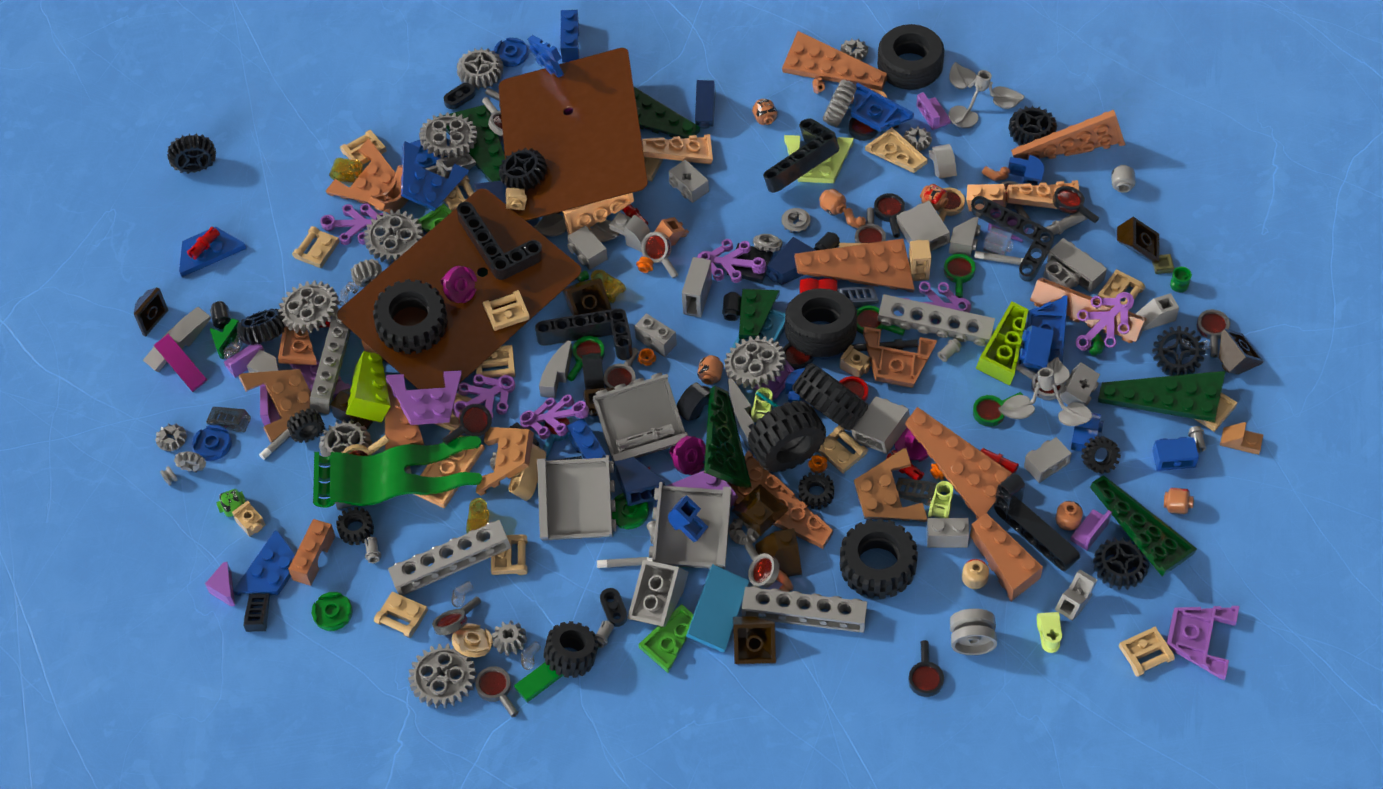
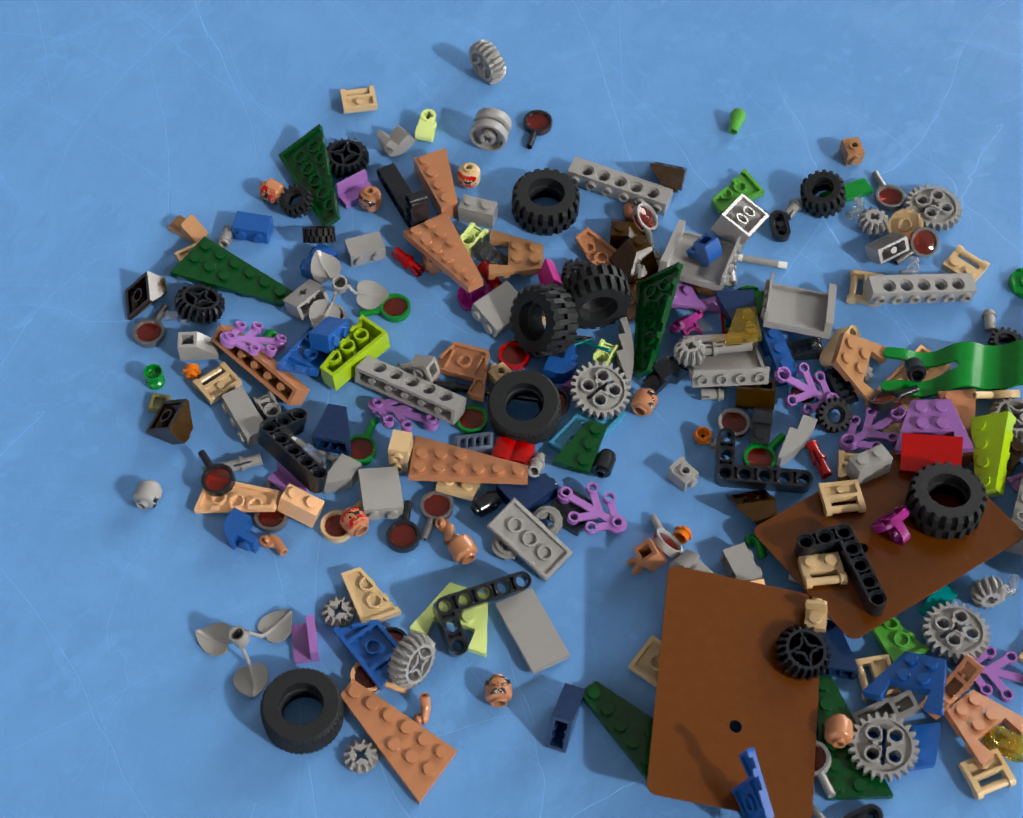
camera: 170 degrees left, 0 degrees up
(426, 365) = (925, 449): none -> red tile
(447, 458) = (915, 369): none -> black brick
(477, 518) = (889, 322): clear yellow piece -> none
(484, 344) = (869, 464): none -> light grey brick
(485, 134) = (838, 730): none -> nougat head
(490, 603) = (887, 248): none -> light grey brick
(516, 240) = (821, 565): none -> tan plate
(523, 399) = (841, 407): none -> black tyre
(531, 361) = (818, 459): none -> red pin
(545, 730) = (851, 151): none -> medium nougat brick
(612, 286) = (725, 516): clear yellow piece -> none
(627, 452) = (744, 327): none -> clear yellow wing
(655, 335) = (686, 444): light grey brick -> none
(657, 311) = (683, 474): none -> light grey brick
(677, 415) = (689, 352): none -> light grey gear
(688, 181) = (611, 619): light grey brick -> none
(689, 149) = (606, 659): light nougat wing -> none
(691, 742) = (736, 120): none -> bright green cone
(697, 287) = (636, 481): light grey brick -> none
(717, 607) = (691, 202): dark azure tile -> none
(747, 156) = (532, 631): none -> light grey tile
(777, 220) = (529, 539): none -> light grey tile
(792, 280) = (537, 464): none -> light grey pin
(838, 465) = (549, 273): none -> dark pink brick
(930, 339) = (424, 367): none -> light grey brick
(943, 161) = (324, 567): light grey brick -> none
(987, 266) = (333, 431): none -> dark blue slope
(1015, 731) = (487, 61): none -> light grey gear
(1033, 121) = (220, 579): black gear -> none
(1075, 139) = (162, 542): nougat wing -> none
(1146, 492) = (290, 195): none -> black tyre
(1149, 294) = (191, 371): none -> orange plate
(1191, 635) = (314, 104): medium lavender wing -> none

